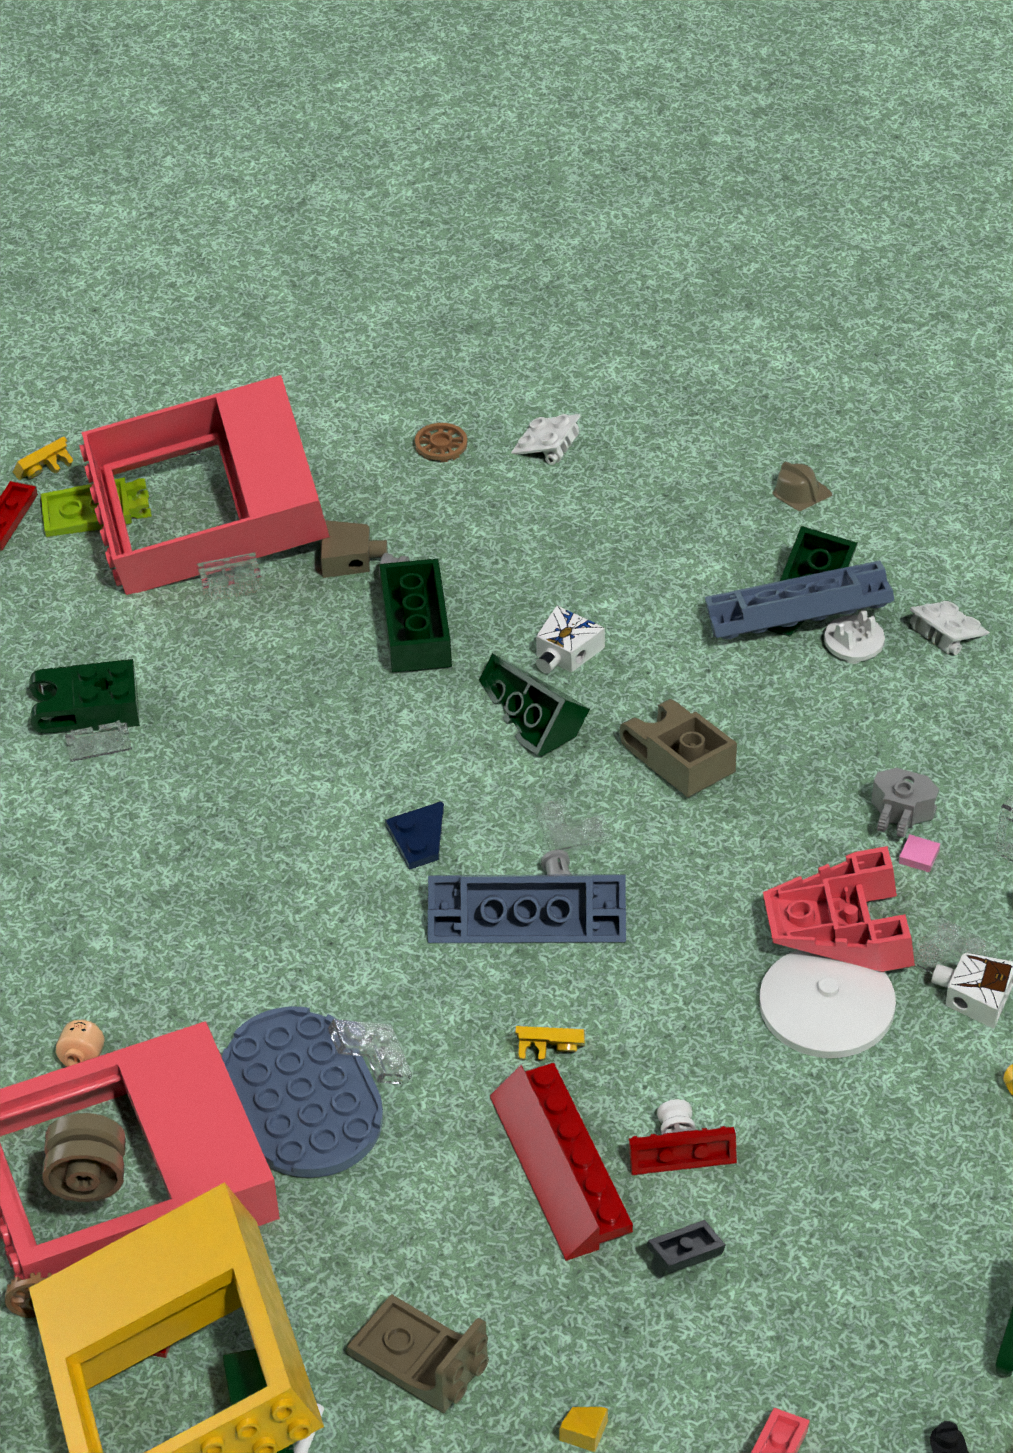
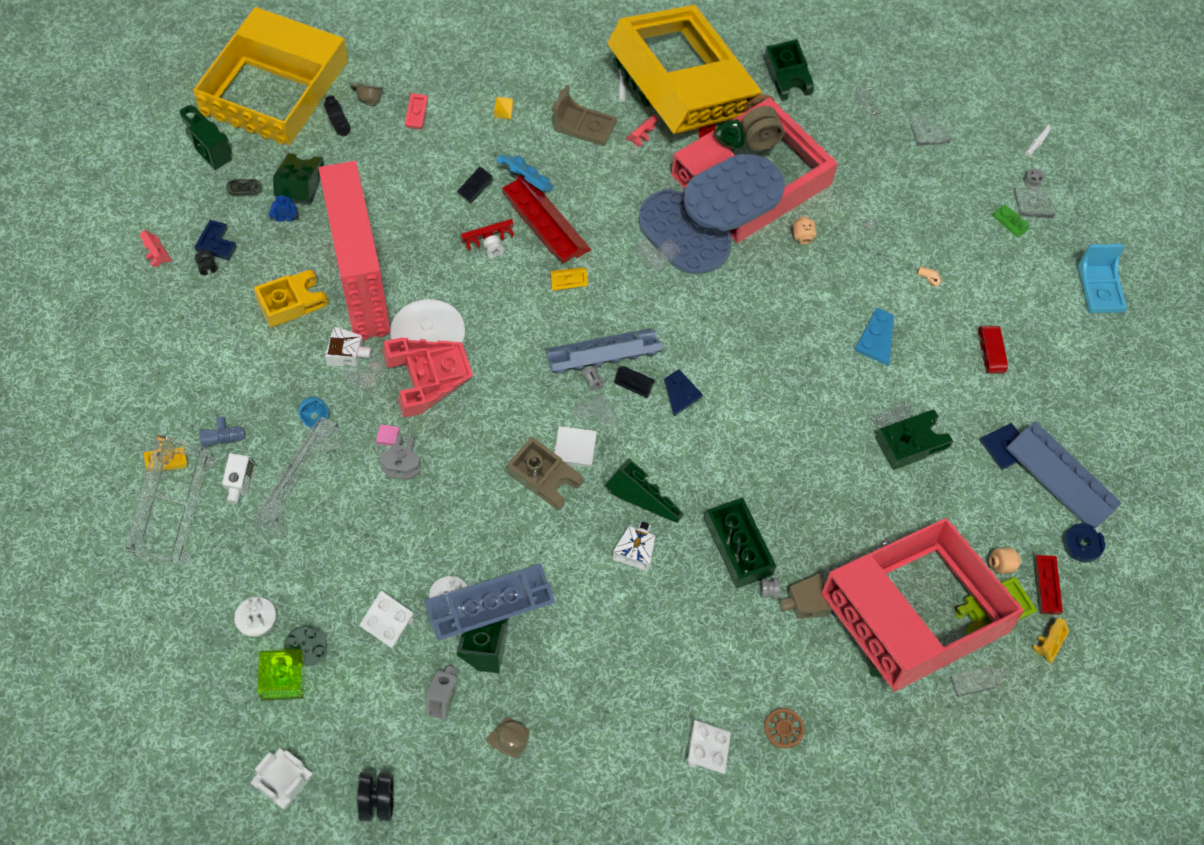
camera: 160 degrees right, 15 degrees up
(49, 544) = (1005, 560): none -> light nougat head
(50, 858) = (877, 337): none -> dark azure wing
(148, 1172) = (730, 134): none -> dark green piece
(193, 1072) = (734, 192): none -> sand blue plate
(313, 1307) = (639, 132): none -> coral plate
(495, 858) = (634, 381): none -> black plate
(577, 1256) = (531, 175): none -> dark azure wing
(617, 788) = (576, 446): none -> white tile
(884, 523) = (441, 693): none -> light grey torso
(949, 1053) = (355, 249): none -> coral panel
(983, 439) = (375, 797): none -> black wheel

